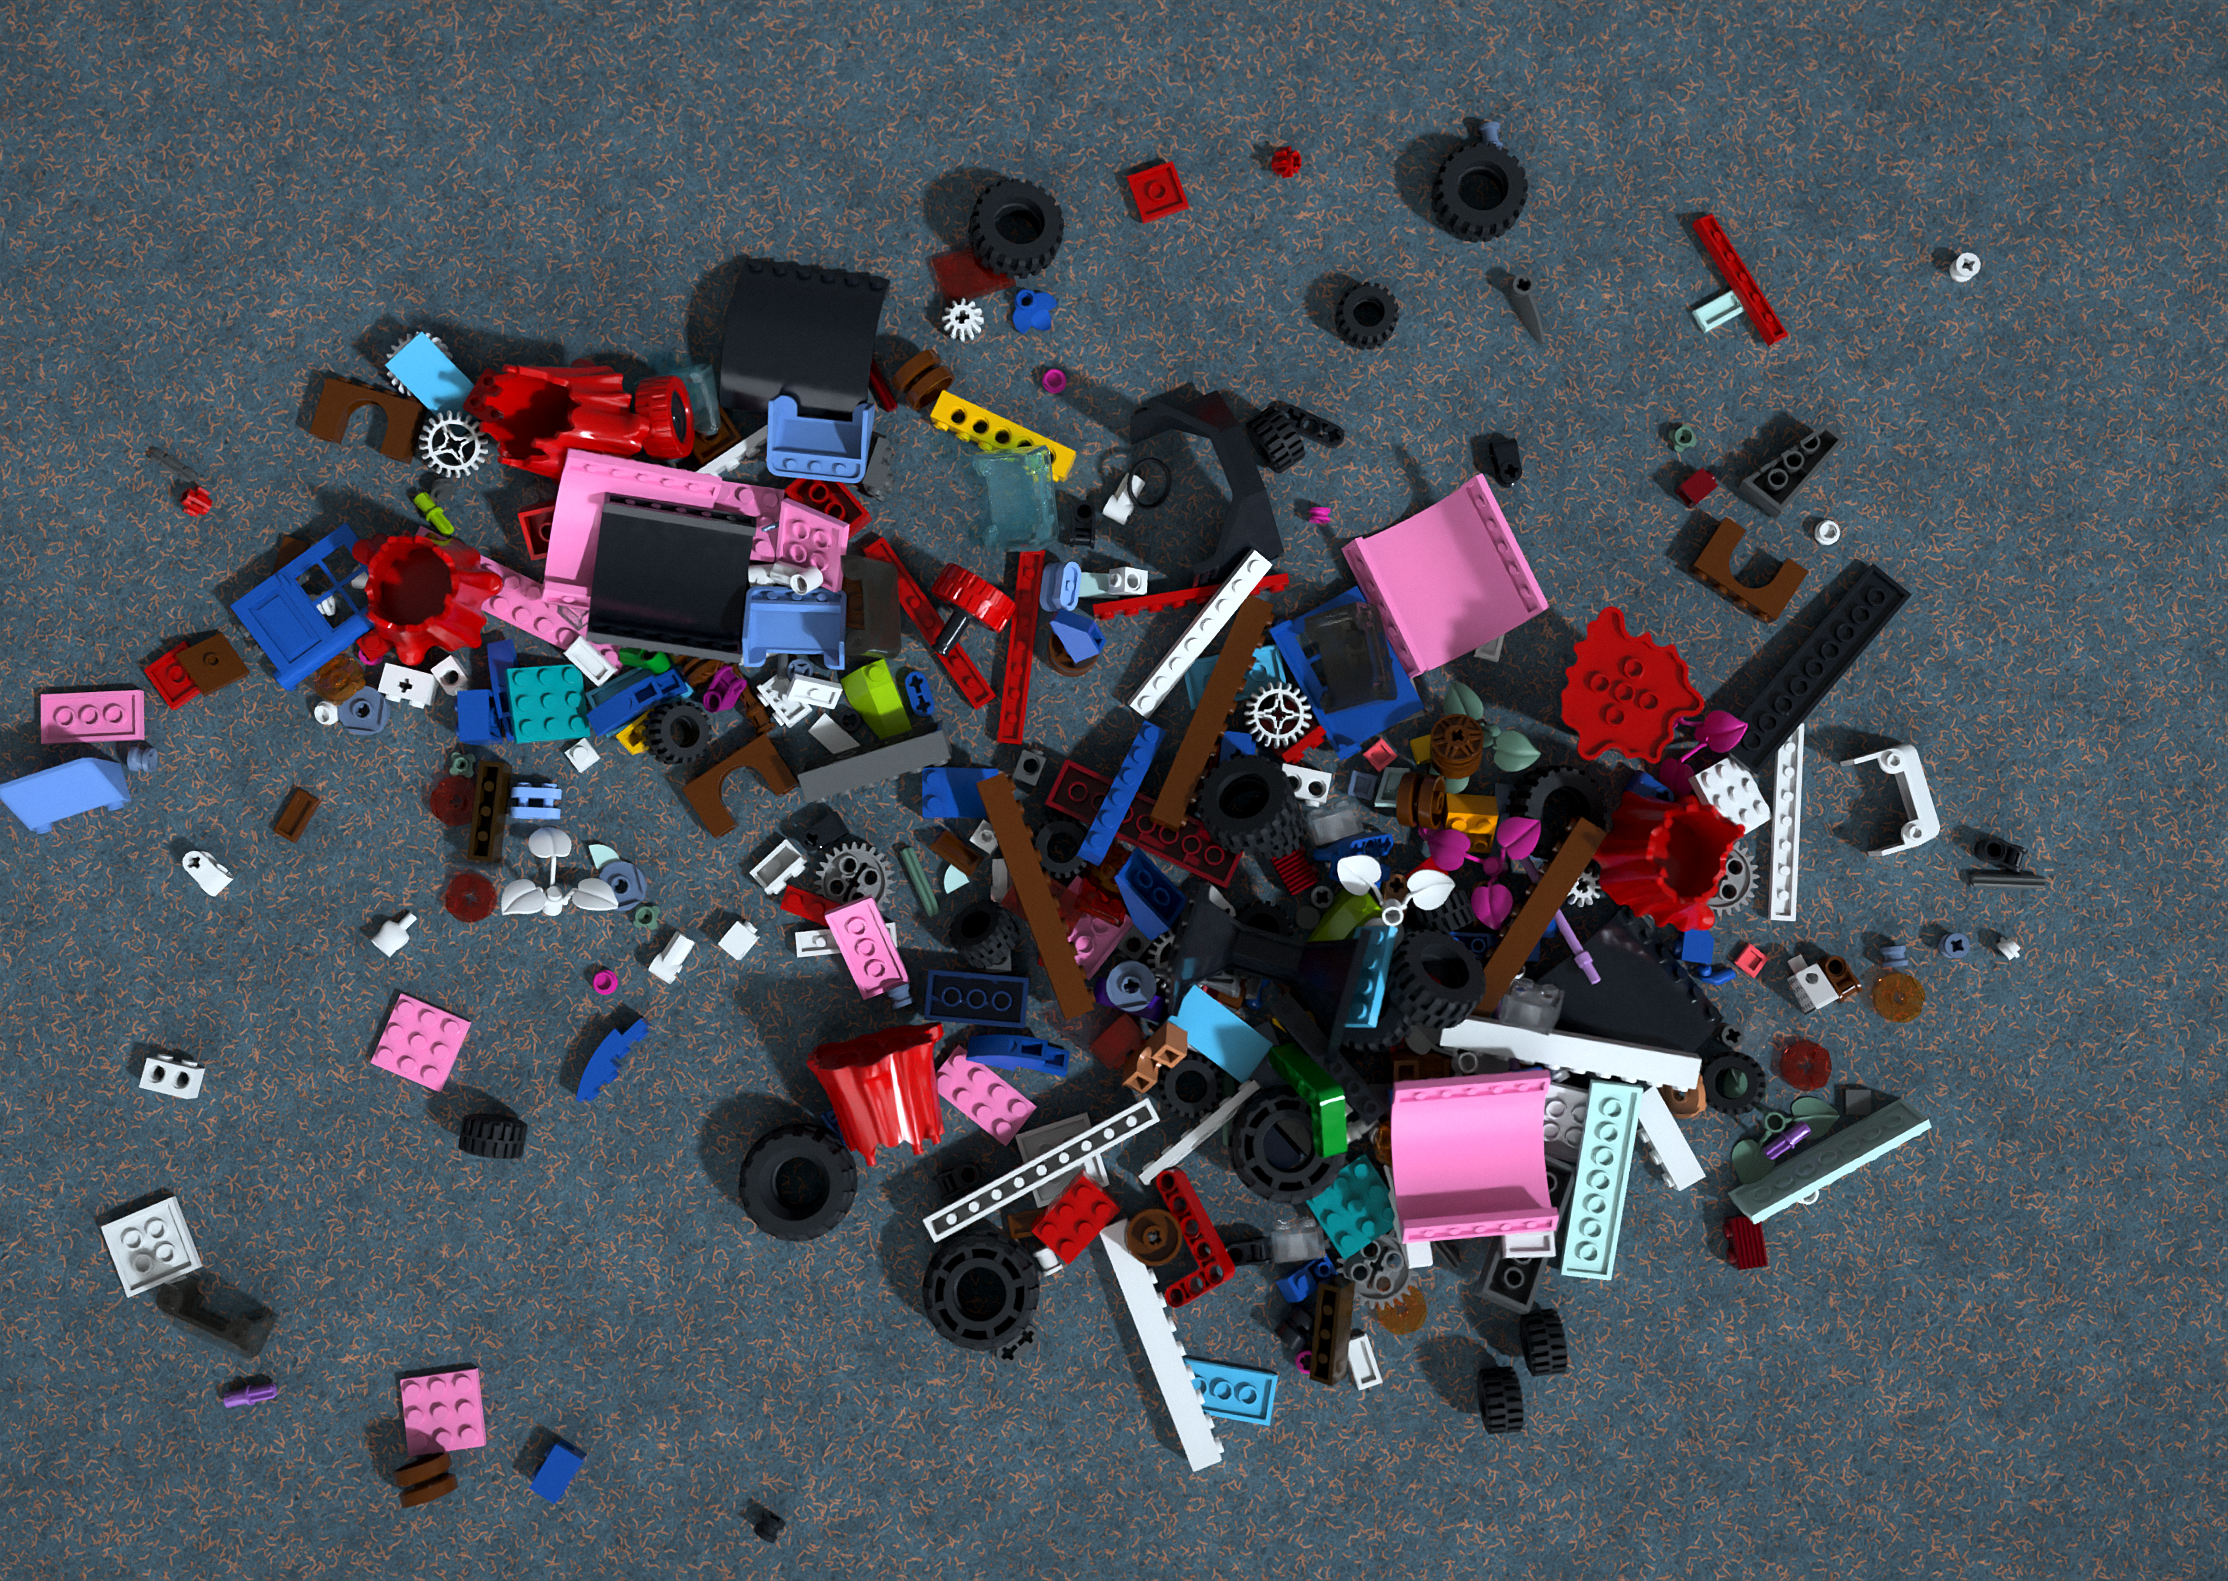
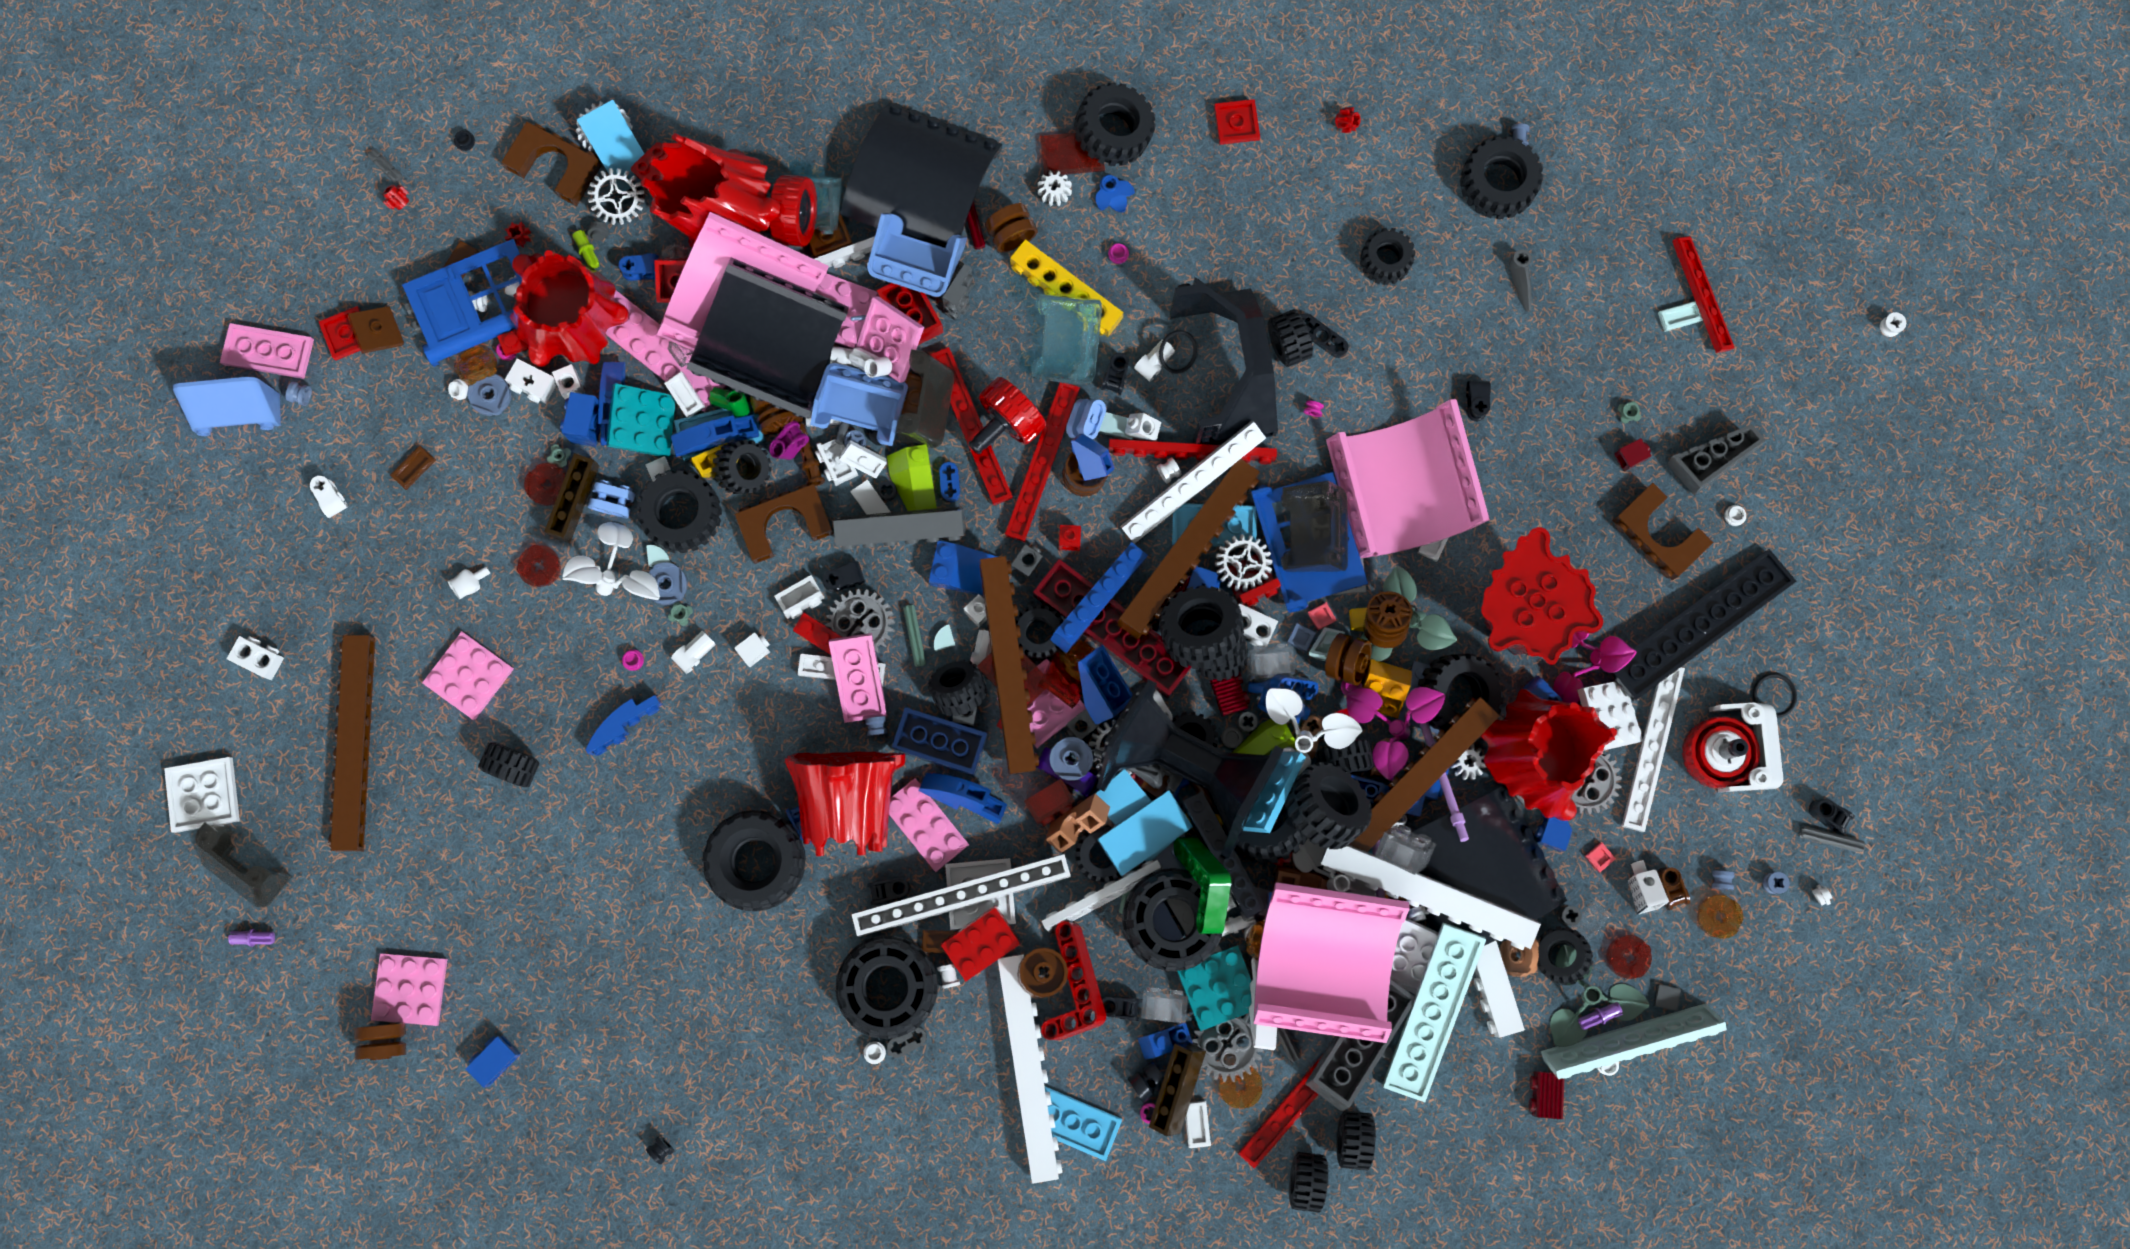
camera: 10 degrees right, 5 degrees down
(259, 415) = (464, 140): none -> black plate
(308, 1150) = (353, 743): none -> reddish brown brick
(348, 508) = (516, 229): none -> red gear
(504, 521) = (641, 267): none -> blue piece
(586, 786) = (666, 487): none -> black tyre
(956, 853) = (950, 618): reddish brown tile -> none
(984, 1363) = (874, 1052): none -> white plate
(1072, 729) = (1070, 538): none -> red brick
(1169, 625) = (1169, 470): none -> white wheel
(1233, 1051) = (1144, 833): none -> medium azure tile
(1453, 1336) = (1279, 1121): none -> red tile
(1528, 1245) = (1361, 1050): white tile -> none
(1715, 978) = (1572, 865): blue arm -> none
(1863, 811) = (1720, 752): none -> red wheel
(1921, 710) = (1788, 681): none -> black tyre

